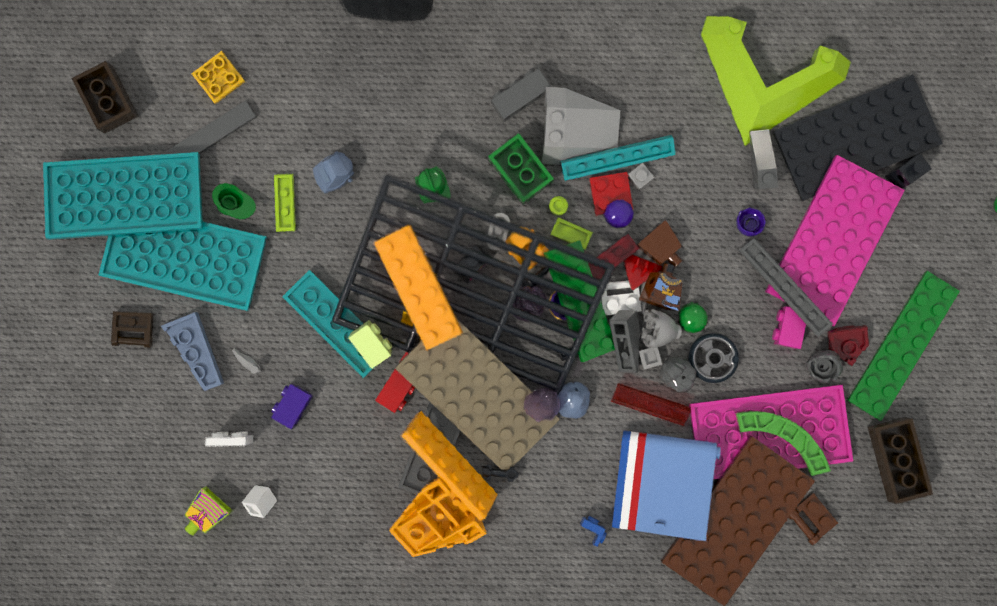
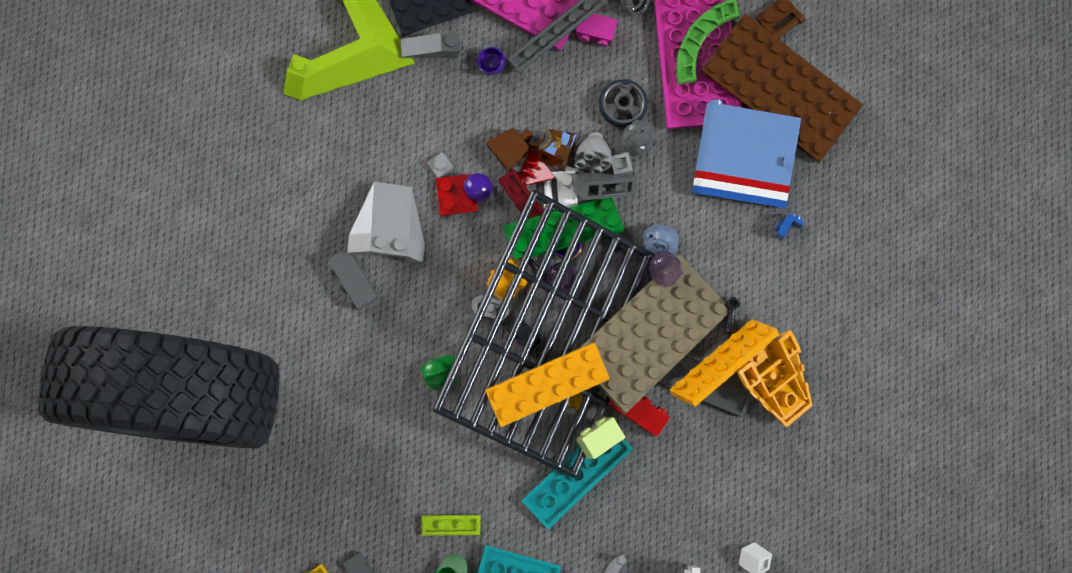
camera: 90 degrees left, 5 degrees down
(291, 406) = (660, 523): dark purple brick -> none
(333, 172) = (422, 473): sand blue helmet -> none
(520, 169) = (429, 282): green brick -> none
(558, 206) = (466, 247): lime tile -> none
(570, 232) = (494, 236): lime tile -> none
(618, 157) = (421, 186): teal plate -> none
(650, 404) = (667, 165): clear red plate -> none
(693, 317) = (582, 121): green hair -> none

